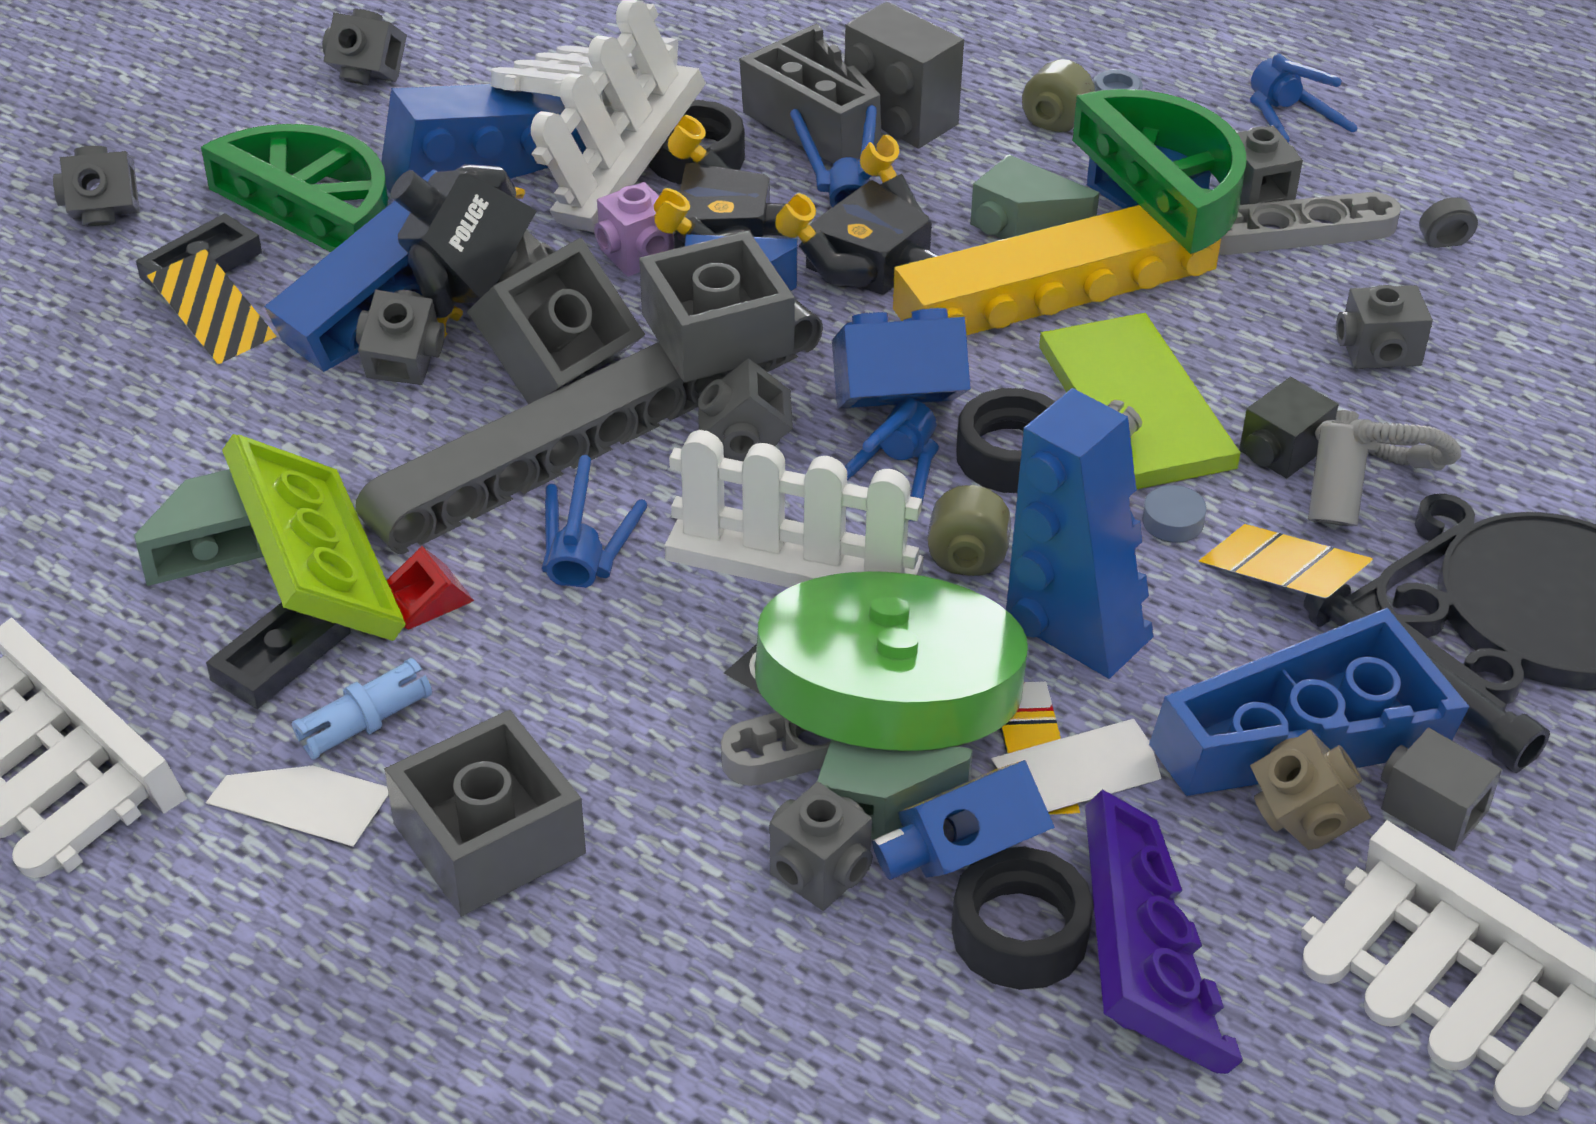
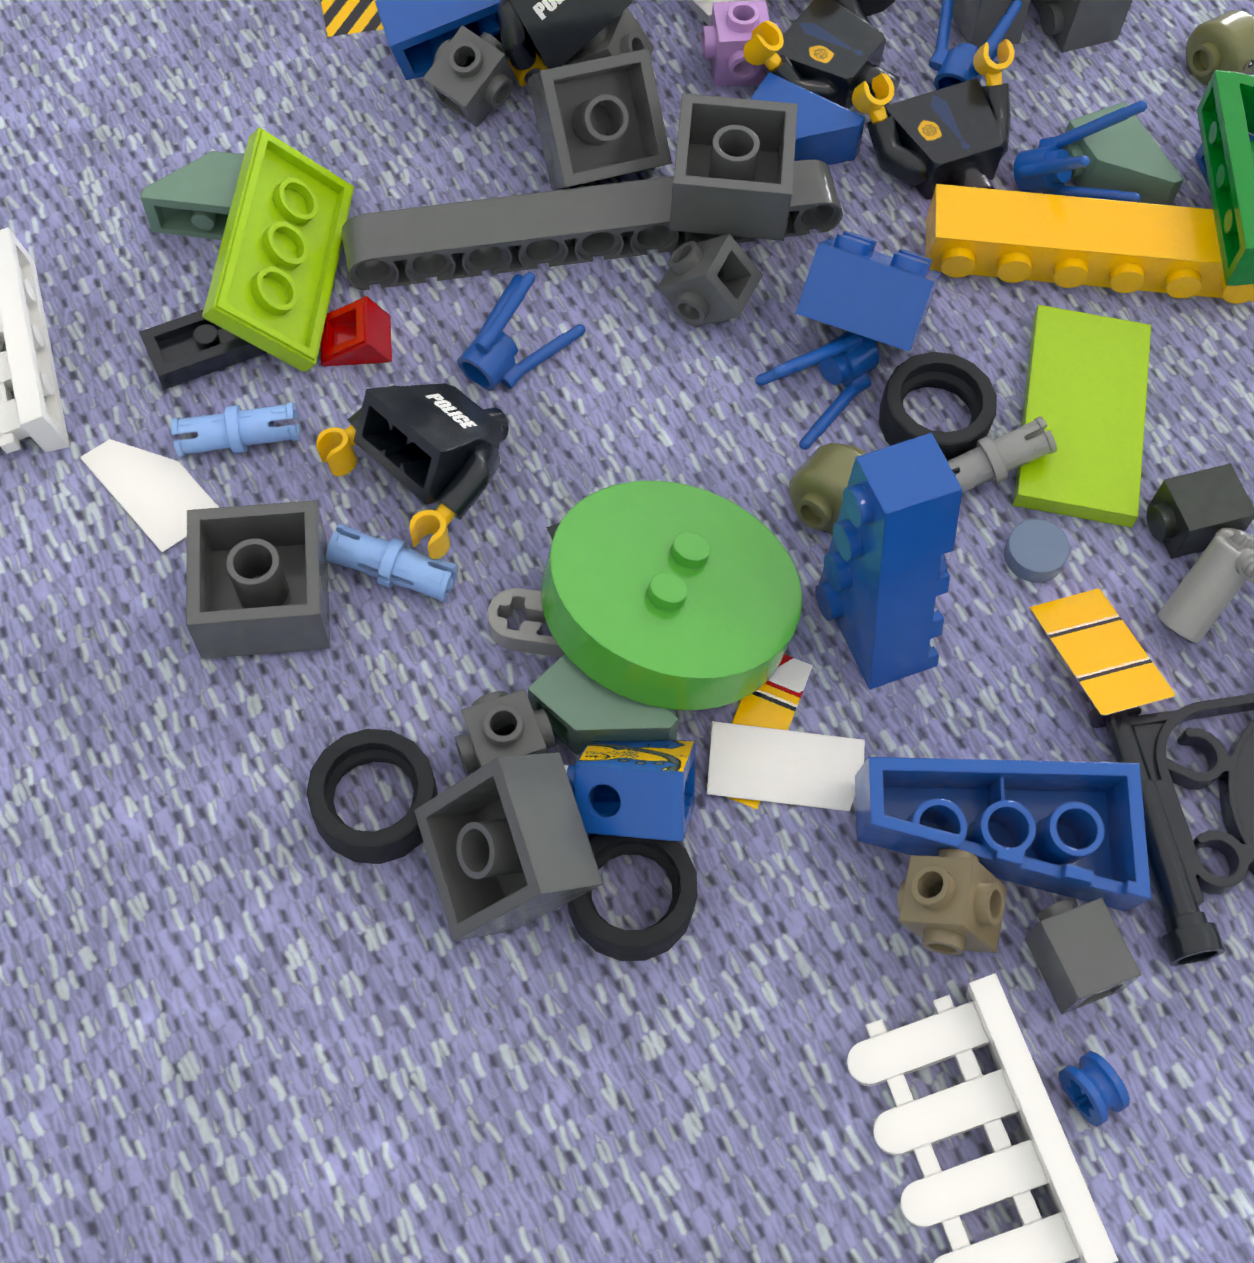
camera: 25 degrees right, 20 degrees up
(574, 631) = (428, 441): none -> black torso
(609, 753) = (391, 562): none -> light blue pin
(722, 995) = (342, 757): none -> black tyre
(781, 551) = (670, 438): white fence -> none
(894, 909) = (507, 845): none -> dark grey brick
(978, 225) = (1050, 166): none -> blue plant
(1148, 940) = (707, 988): dark purple wing -> none
(1534, 870) = (1094, 1088): none -> blue bush

